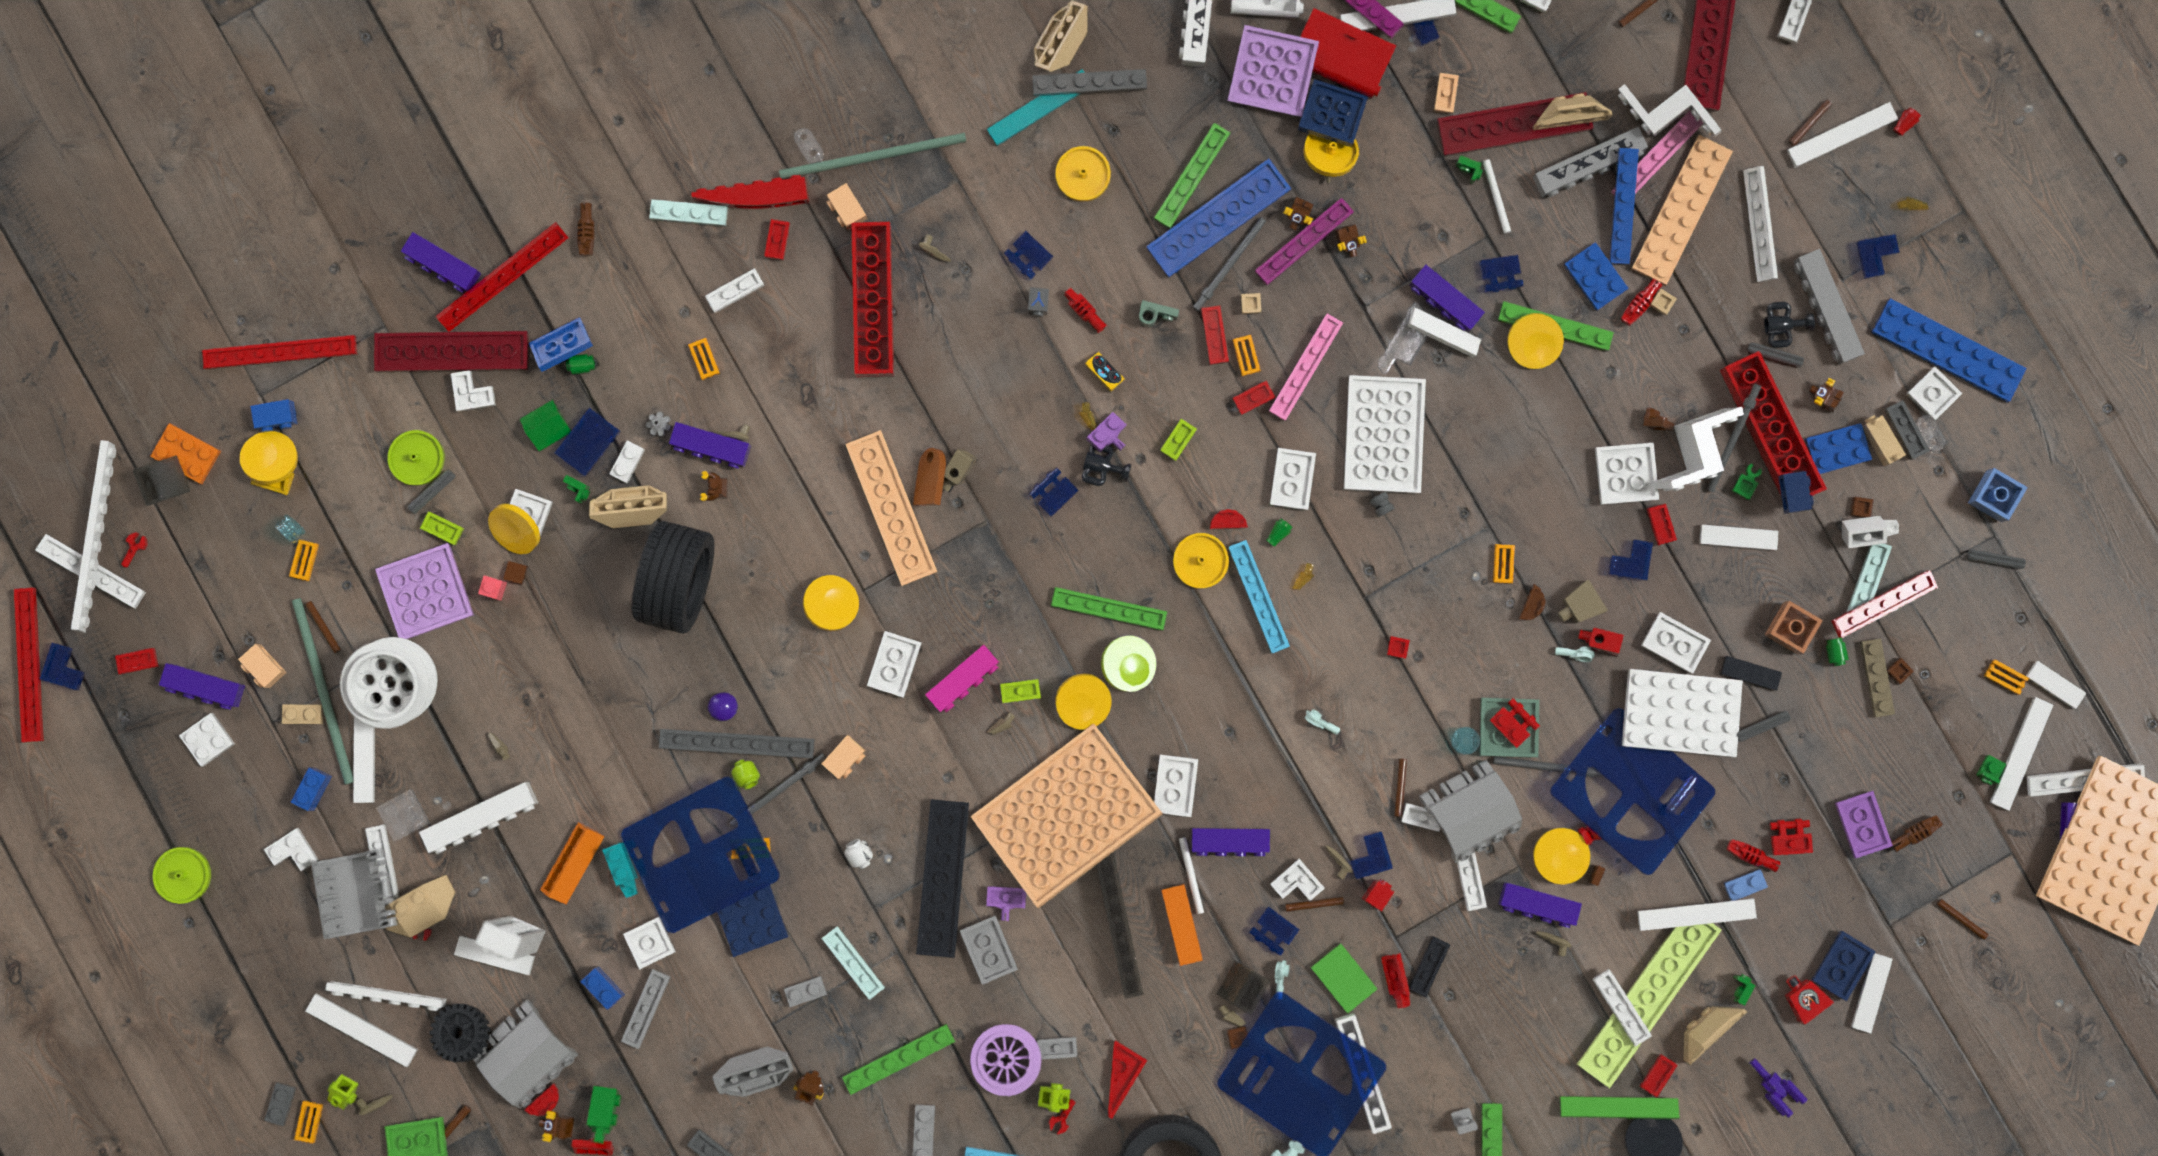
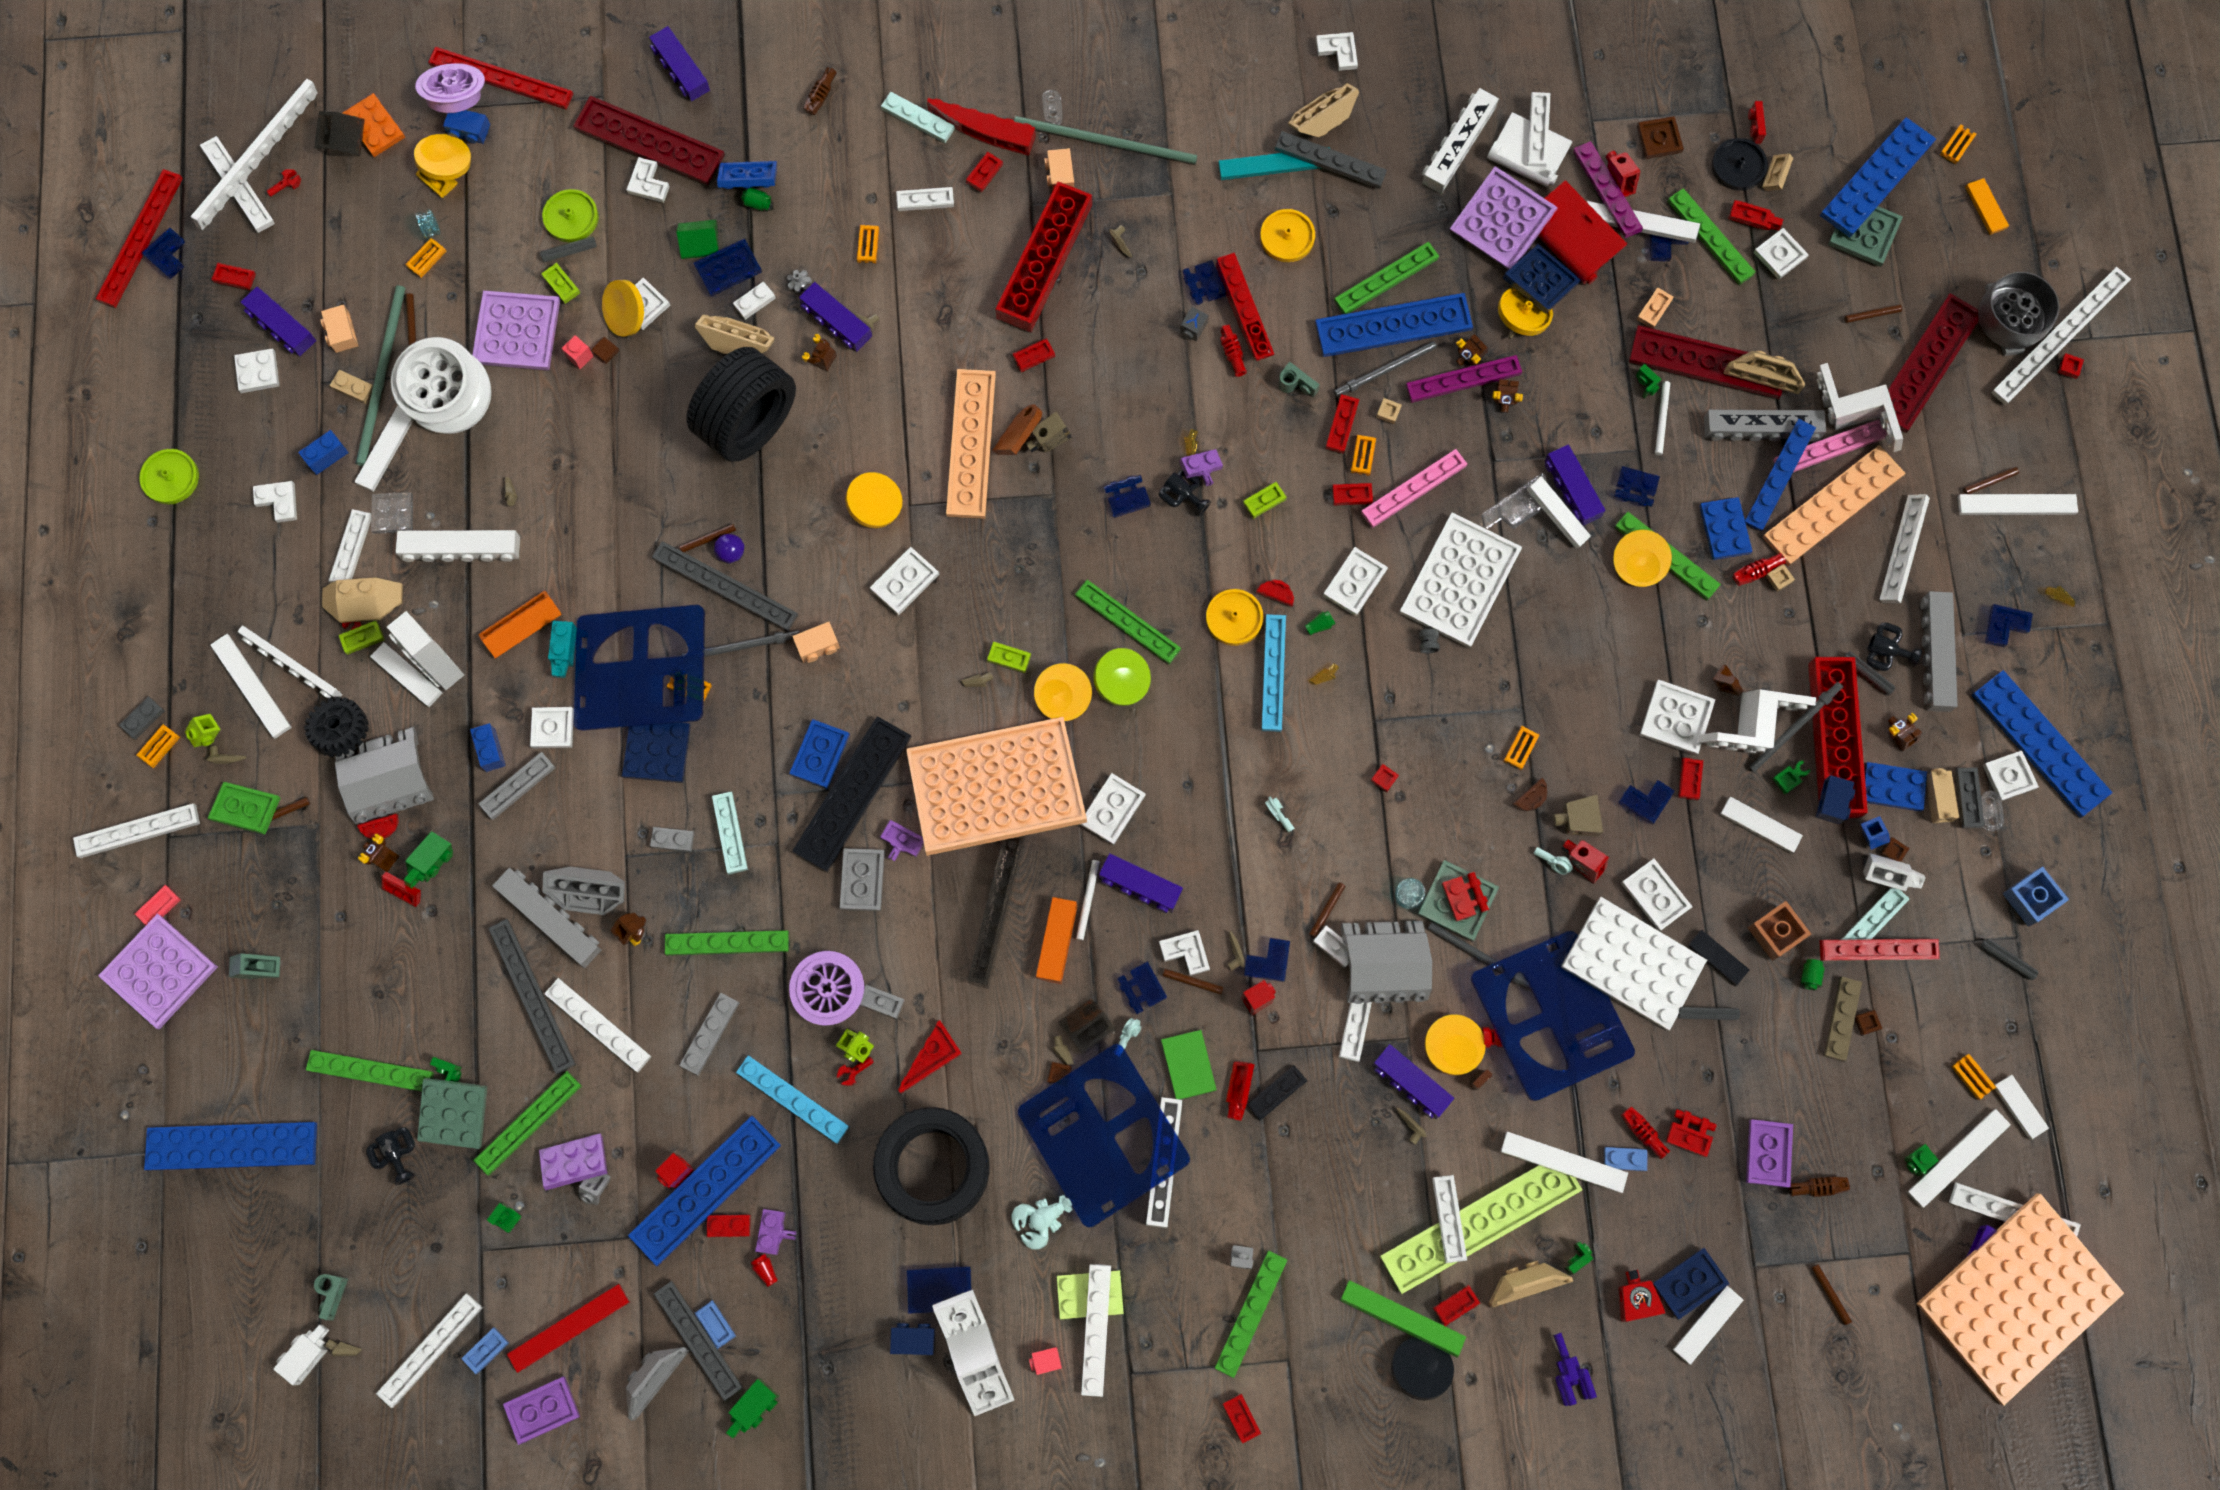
camera: 25 degrees right, 10 degrees down
(246, 393) = (451, 87): none -> lavender piece
(352, 894) = (308, 559): light grey hinge -> none
(437, 941) = (361, 637): none -> lime plate
(502, 277) = (726, 98): red plate -> none
(576, 485) = (700, 302): green bracket -> none
(698, 705) = (707, 538): none -> reddish brown bar
(732, 1111) = (548, 918): none -> light grey brick
(745, 774) = (718, 616): lime head -> none
(858, 853) = (785, 735): white head -> none
(896, 856) = (819, 754): none -> blue plate
(907, 397) = (1033, 355): none -> red plate
(963, 678) = (960, 622): dark pink brick -> none
(1077, 265) = (1243, 306): none -> red slope
(1104, 371) = (1224, 412): slope -> none
(1839, 501) = (1875, 832): none -> blue brick
(1907, 120) = (2087, 517): red cone -> none

